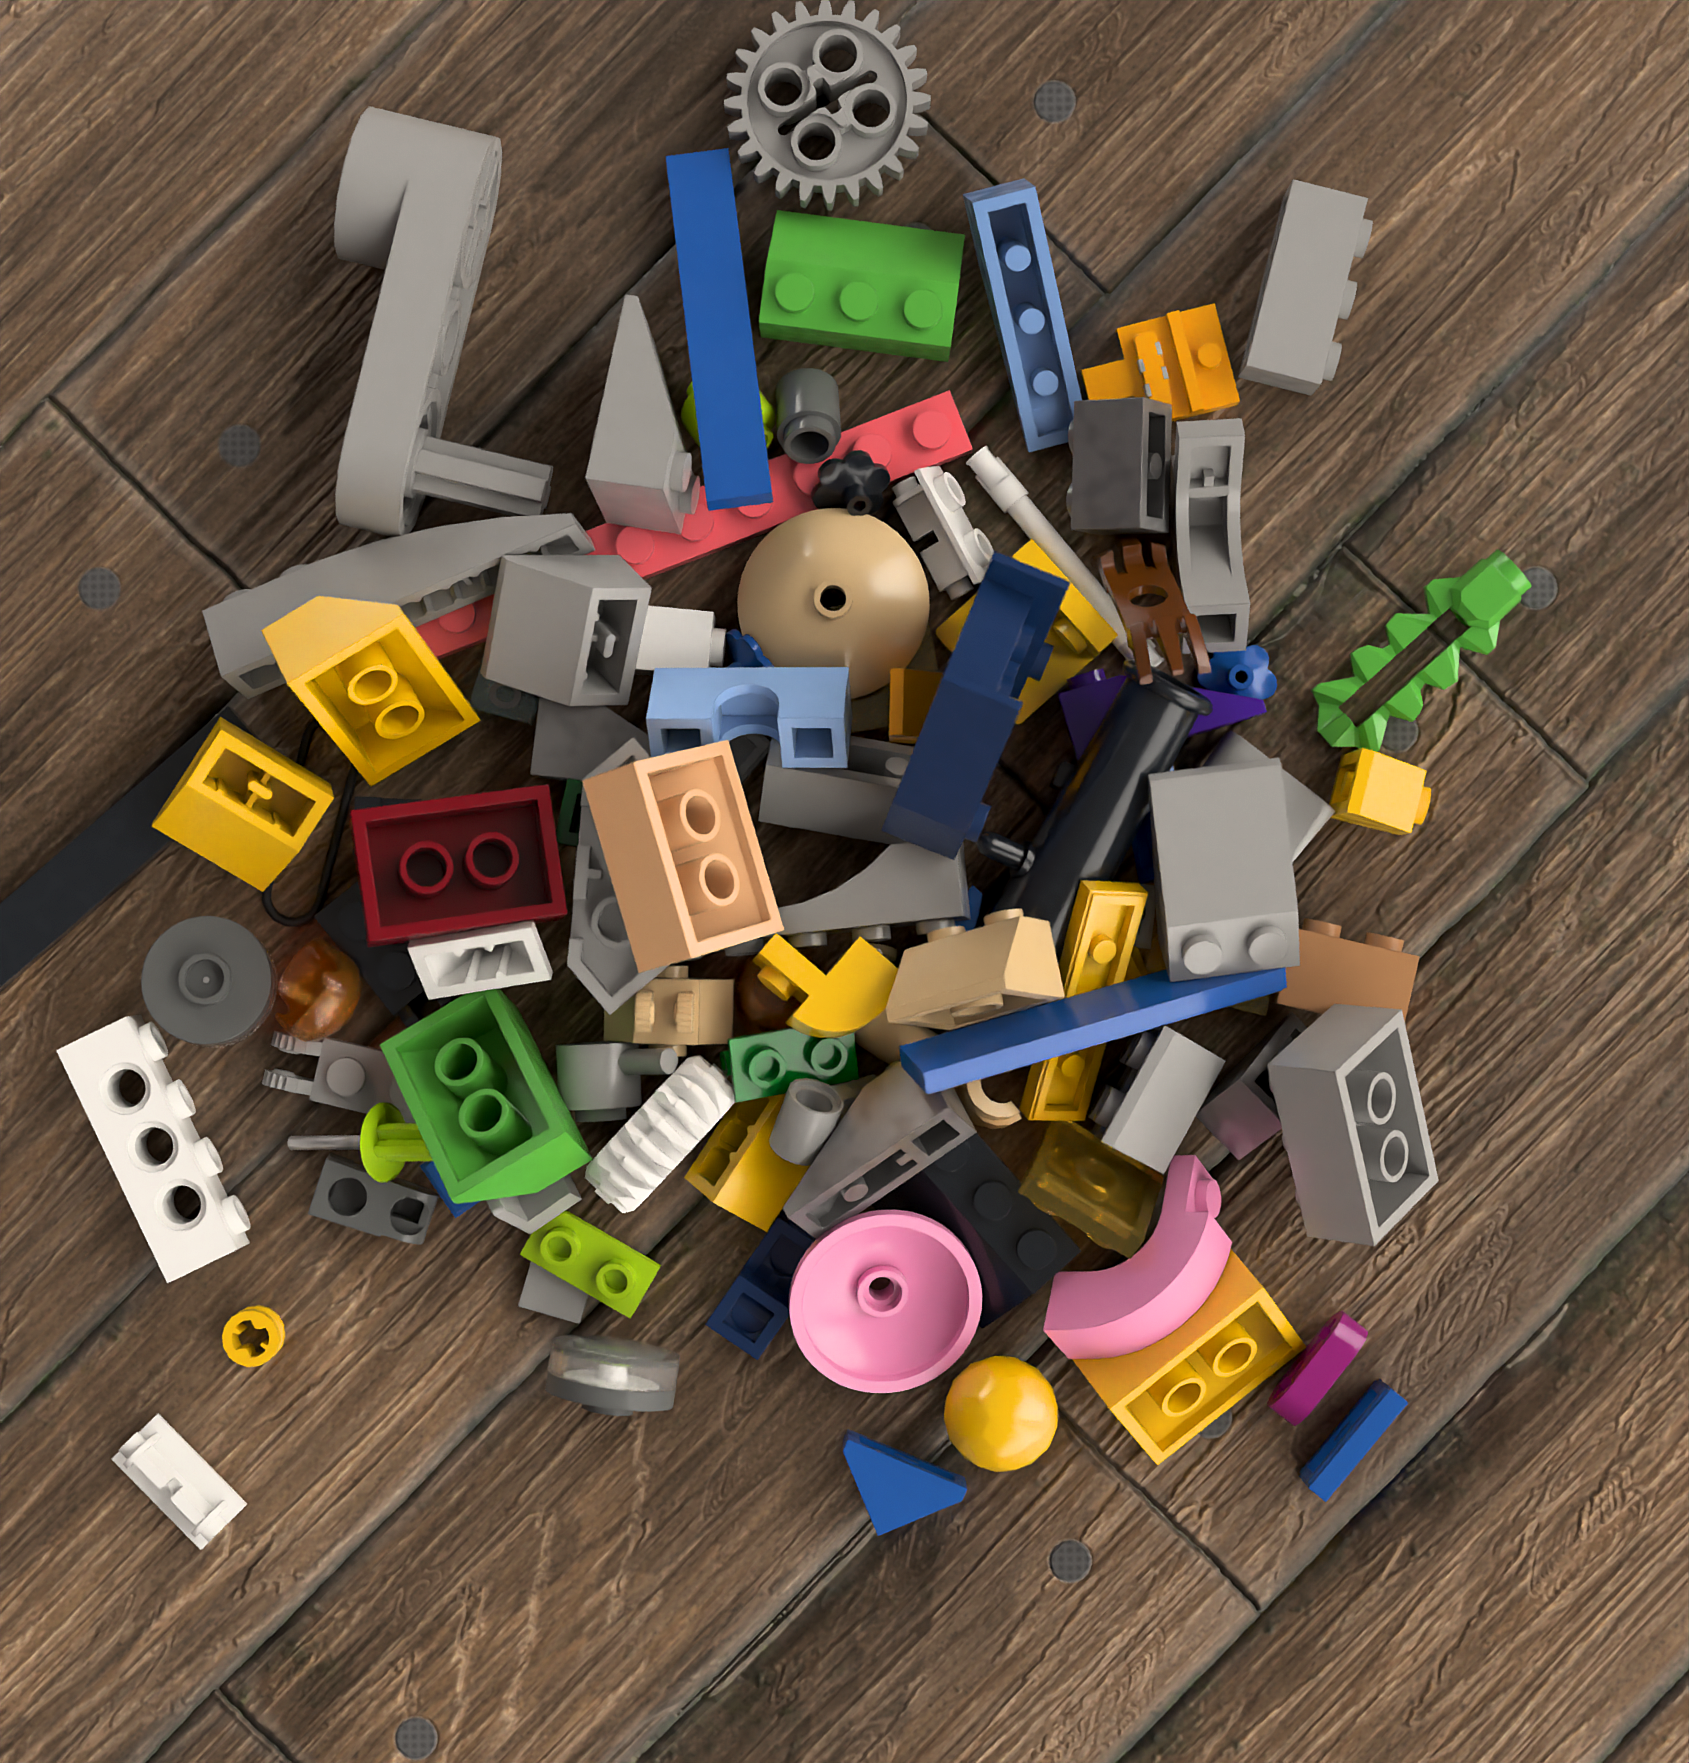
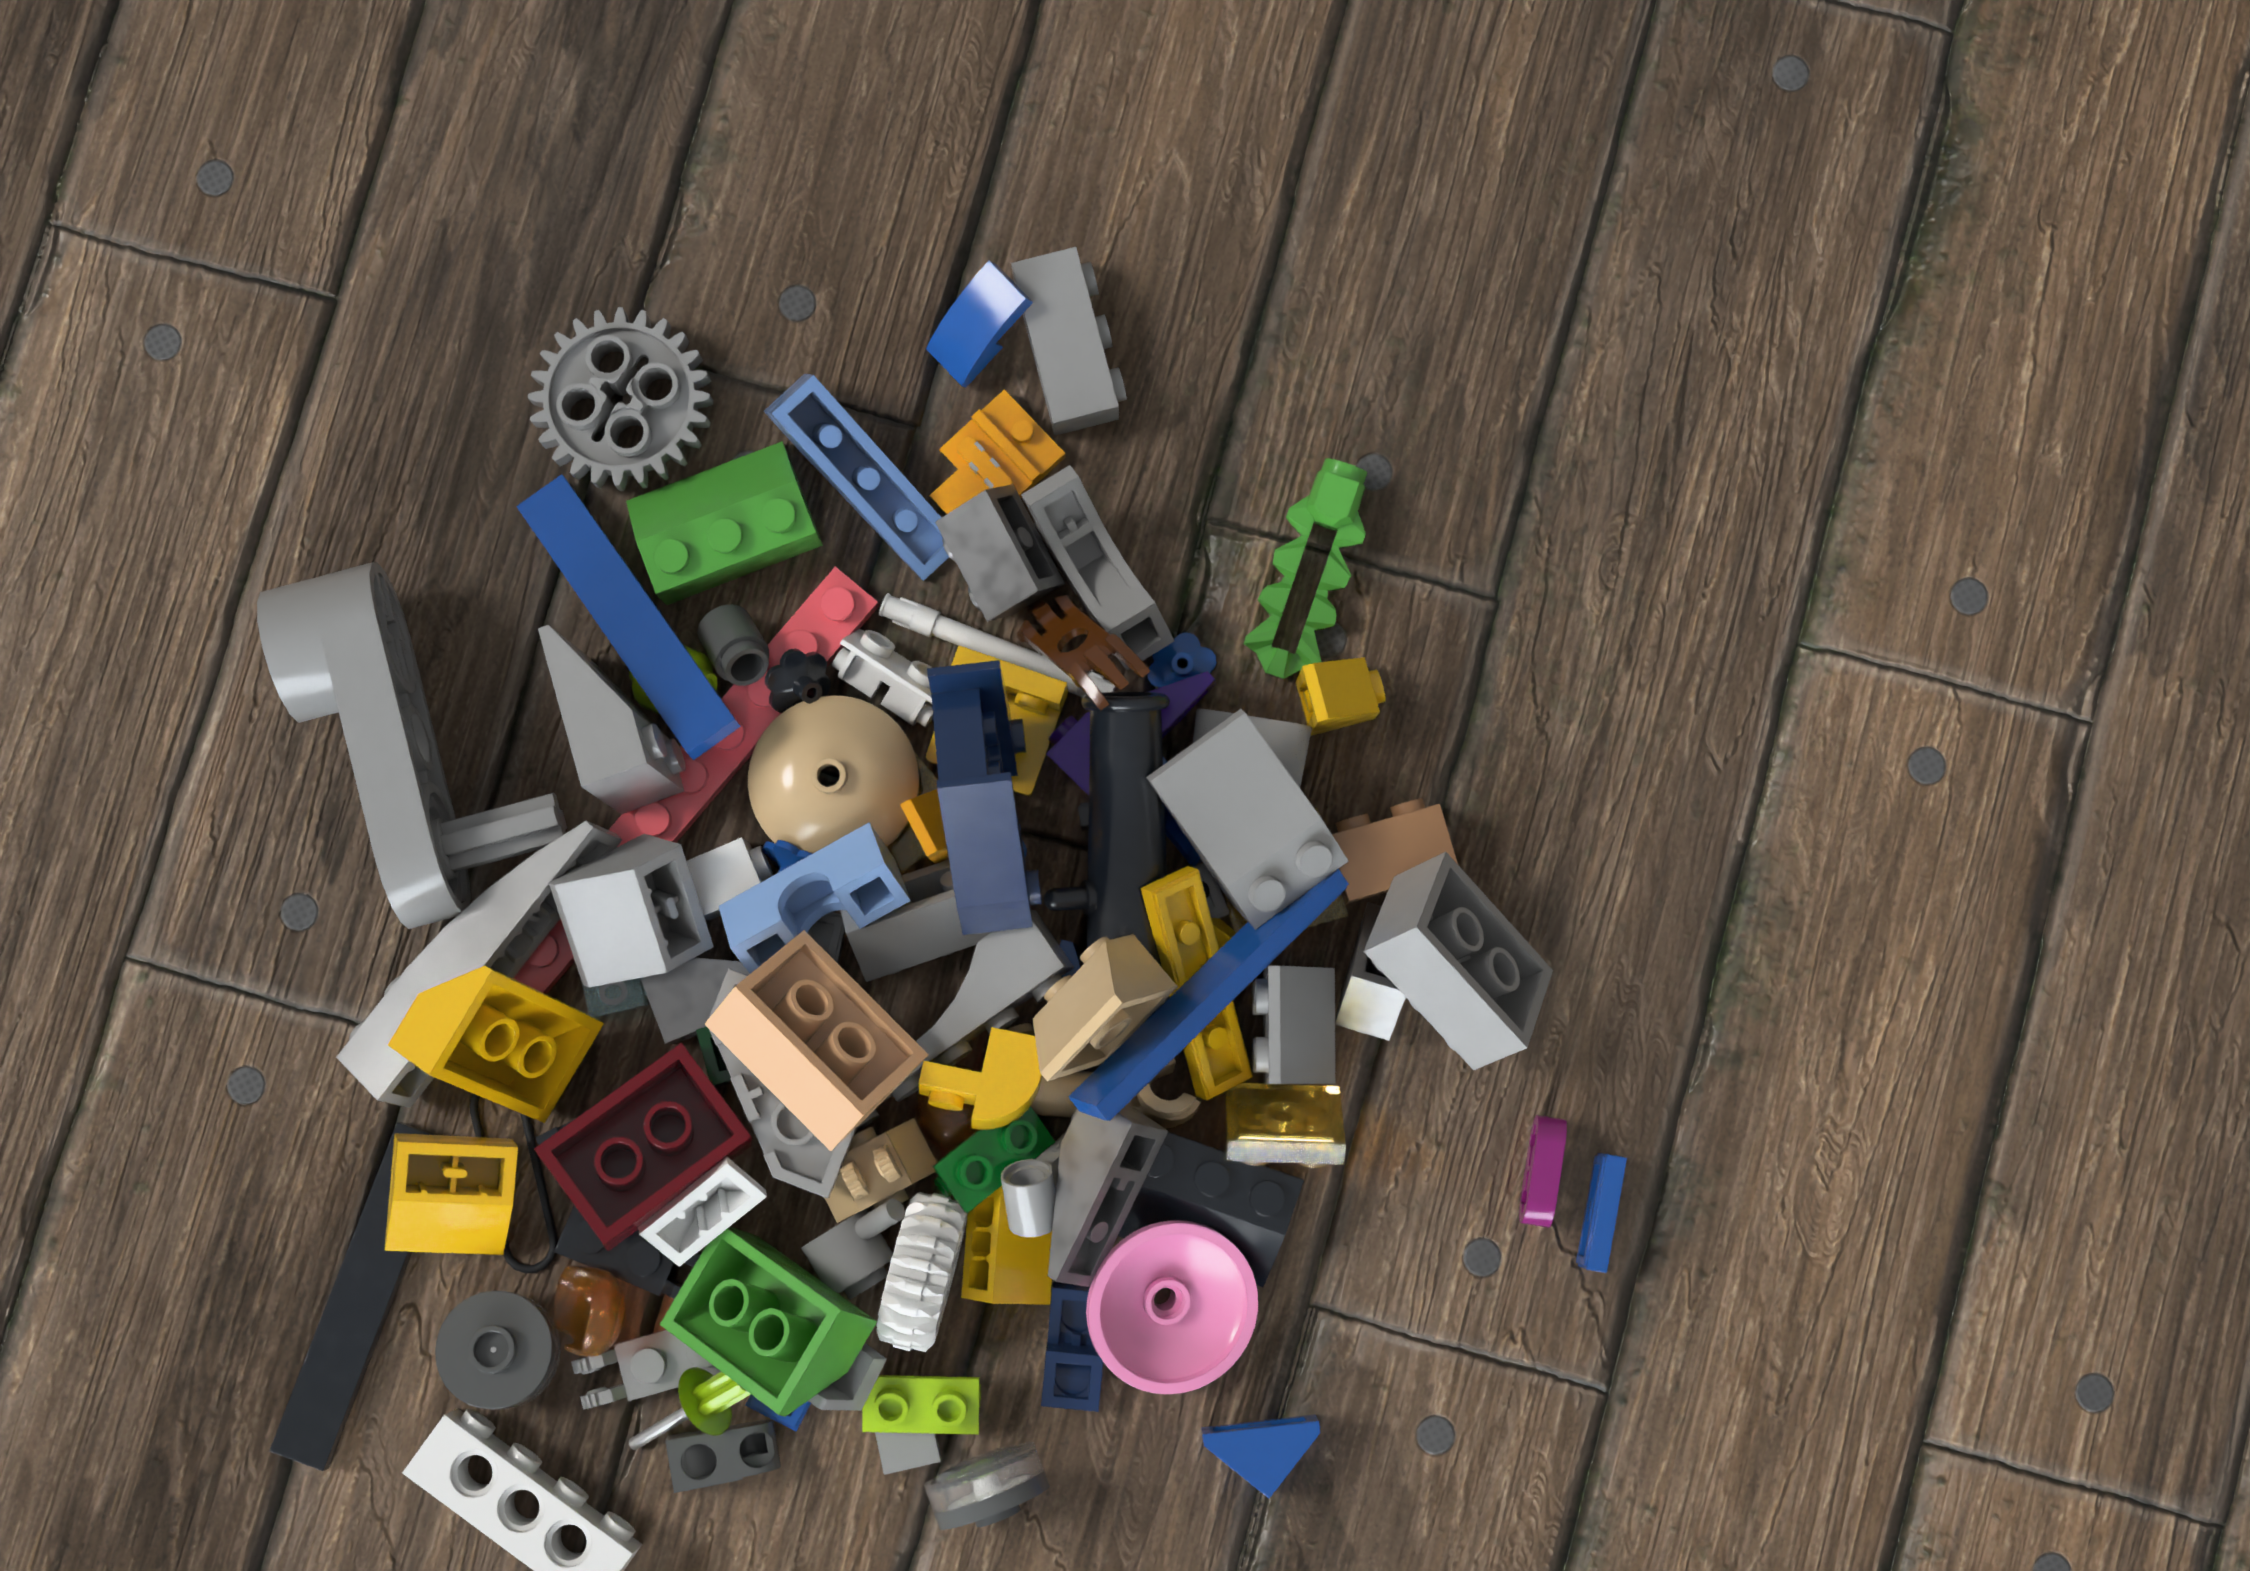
camera: 30 degrees left, 5 degrees down
(1001, 1413) = (1313, 1346): yellow piece -> none
(1156, 1289) = (1378, 1177): bright pink arch -> none
(1200, 1368) = (1435, 1214): yellow slope -> none
(1225, 220) = (975, 323): none -> blue slope

